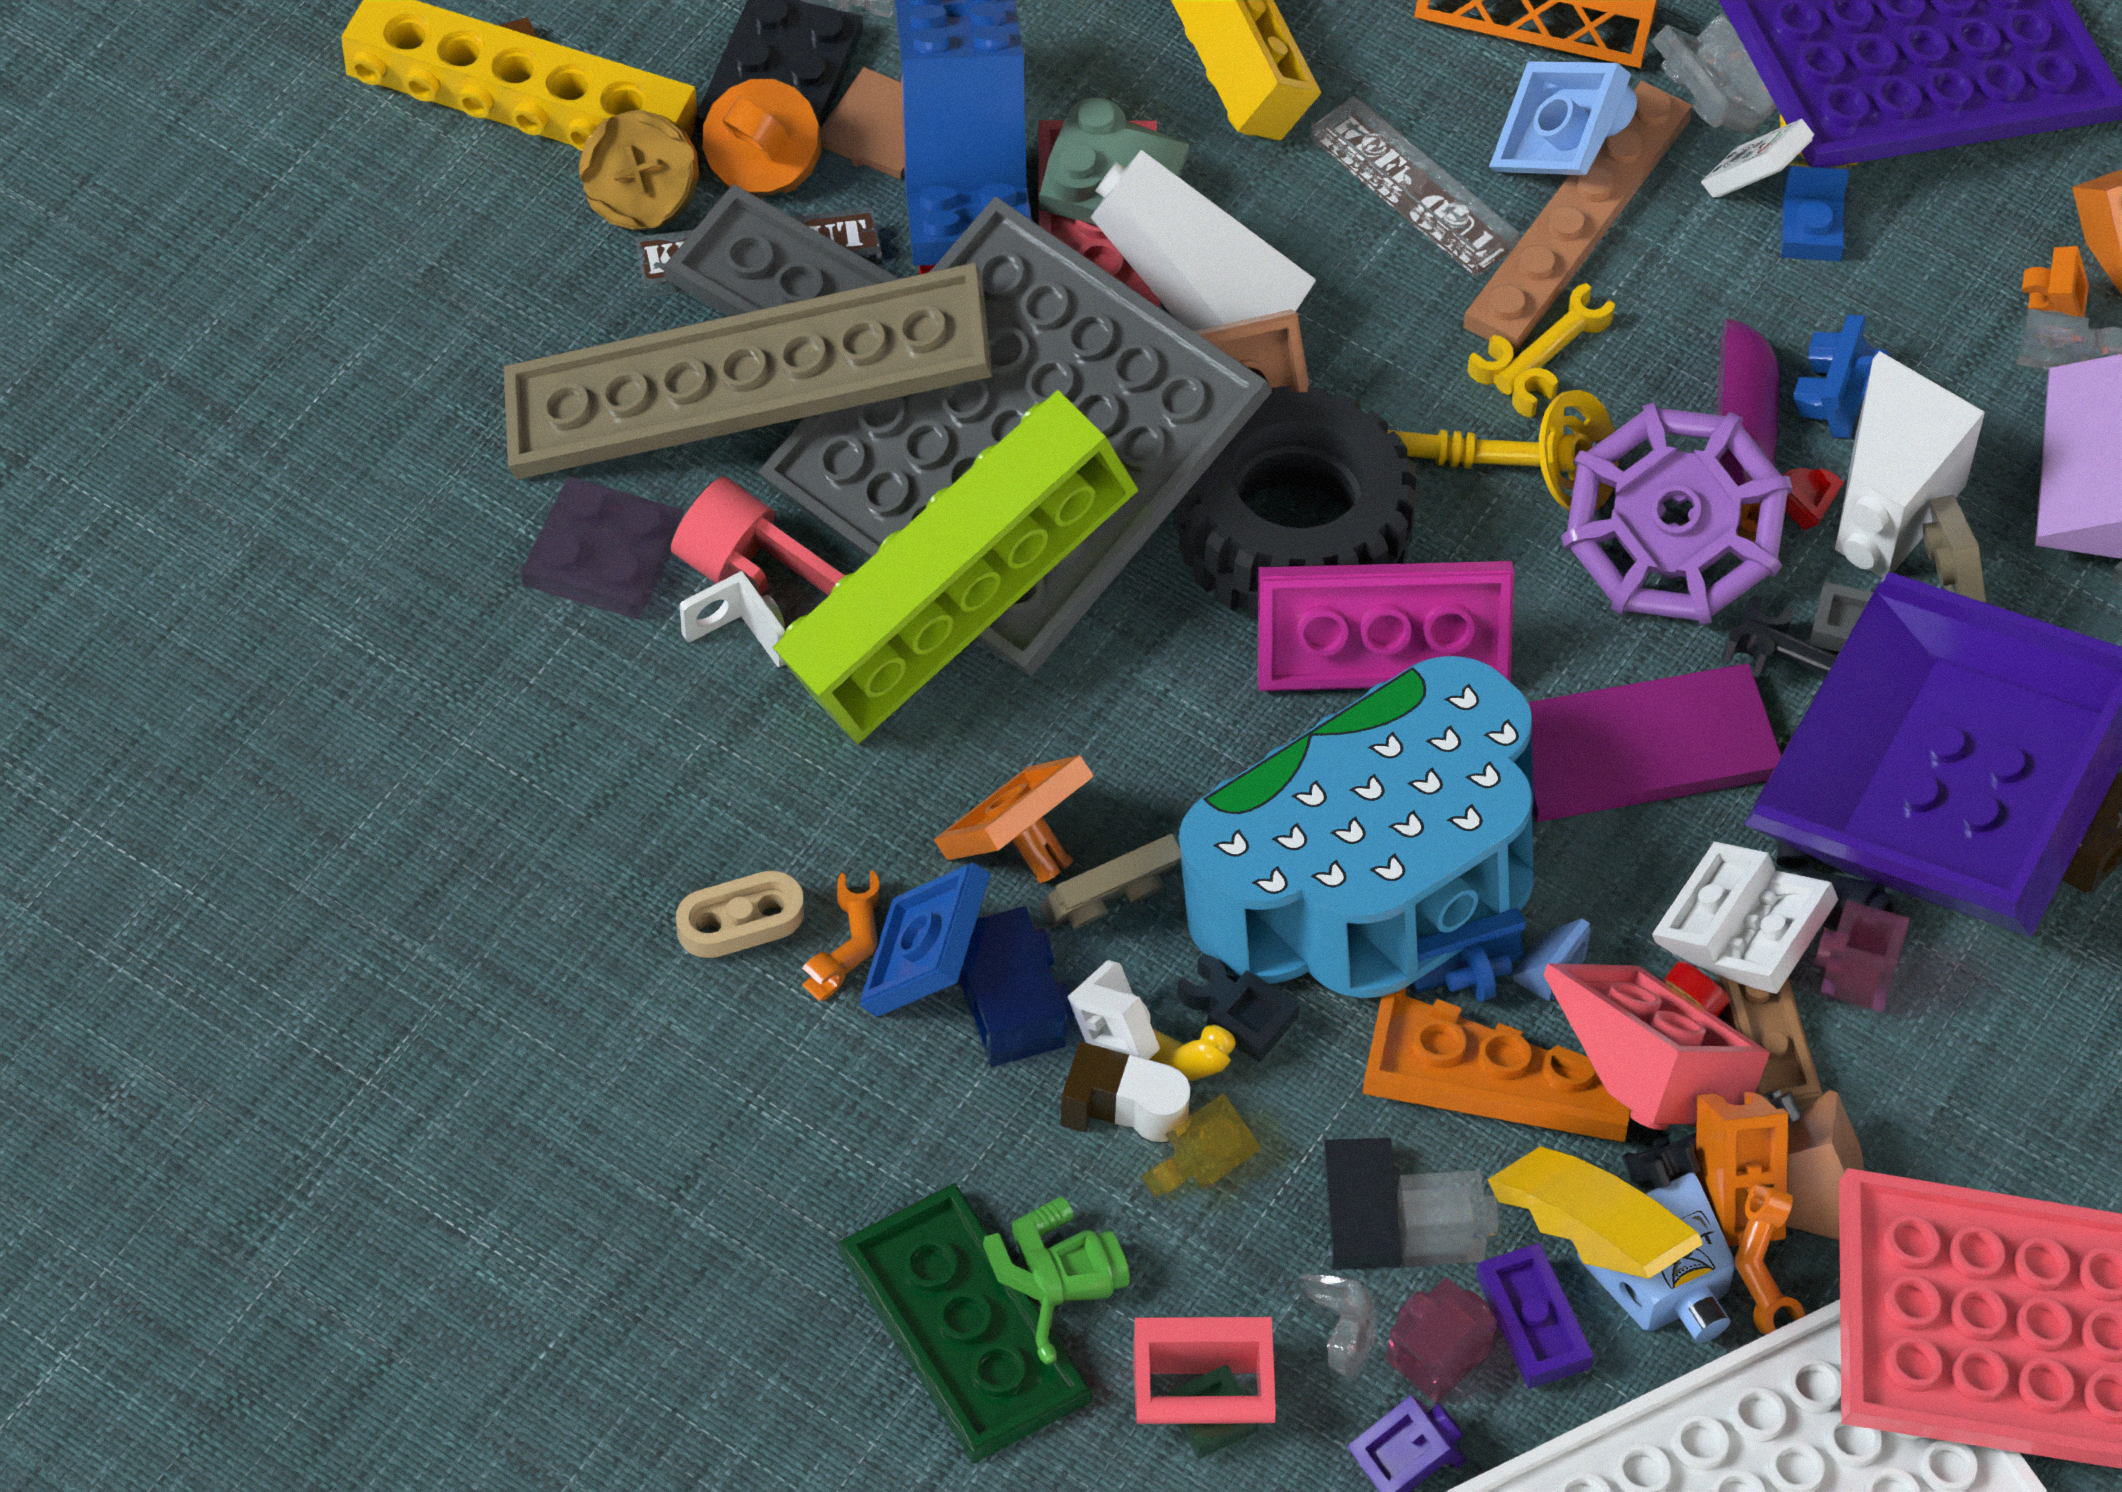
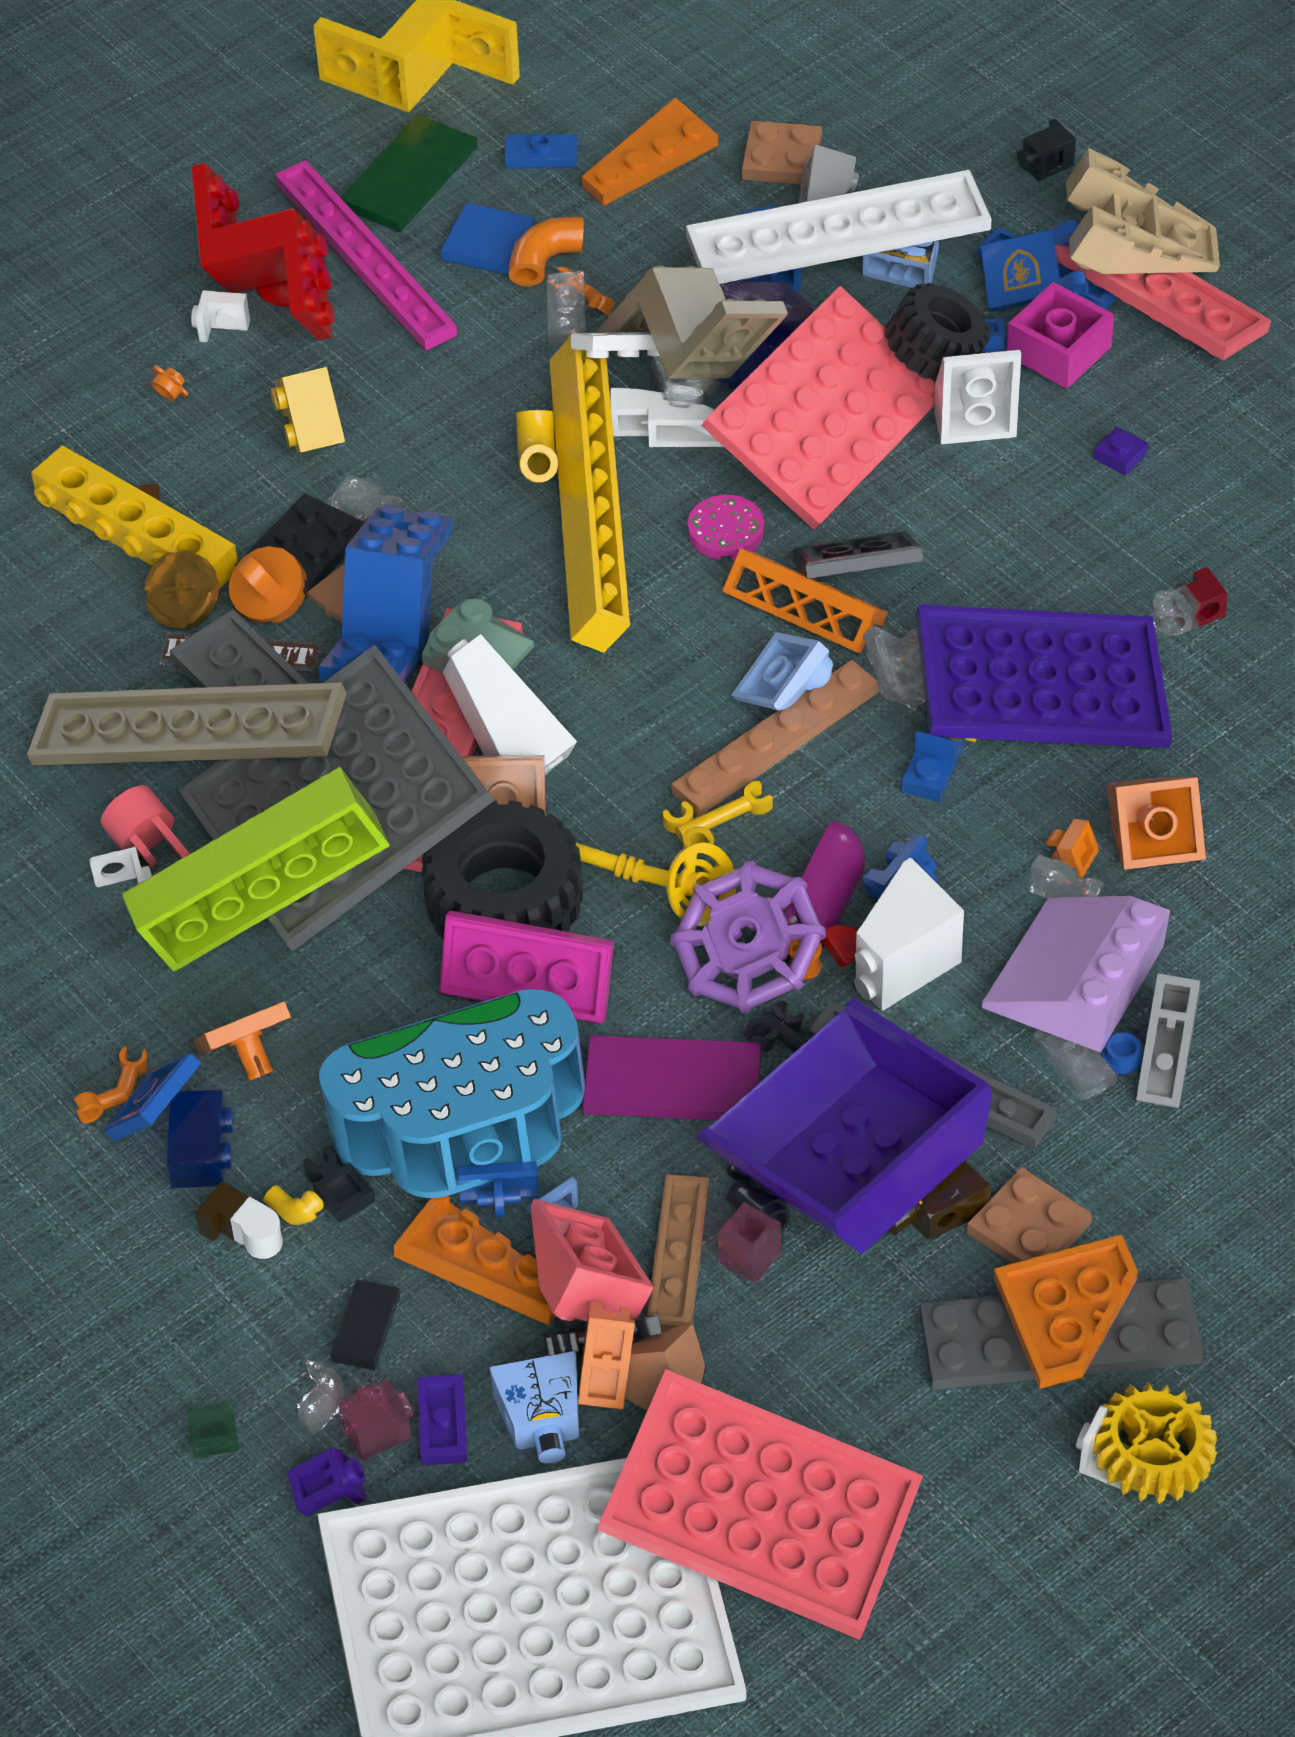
camera: 20 degrees right, 5 degrees down
(602, 548) = (63, 817): clear purple plate -> none
(736, 911) = (52, 1057): tan plate -> none
(960, 1325) = (85, 1340): dark green tile -> none
(1072, 1270) = (161, 1322): bright green piece -> none
(1112, 1014) = (253, 1168): white bracket -> none
(1132, 874) = (271, 1090): dark tan plate -> none
(1200, 1347) = (214, 1386): coral tile -> none
(1205, 1145) = (280, 1264): clear yellow plate -> none
(1415, 186) = (676, 697): clear tile -> none
(1444, 1218) = (409, 1344): clear brick -> none
(1599, 1212) = (494, 1359): yellow slope -> none
(1697, 987) = (635, 1240): red tile -> none
(1745, 917) = (683, 1201): white slope -> none
(1758, 159) = (900, 723): white tile -> none
(1766, 1211) = (603, 1388): orange arm -> none
(1954, 549) = (916, 1000): dark tan plate -> none

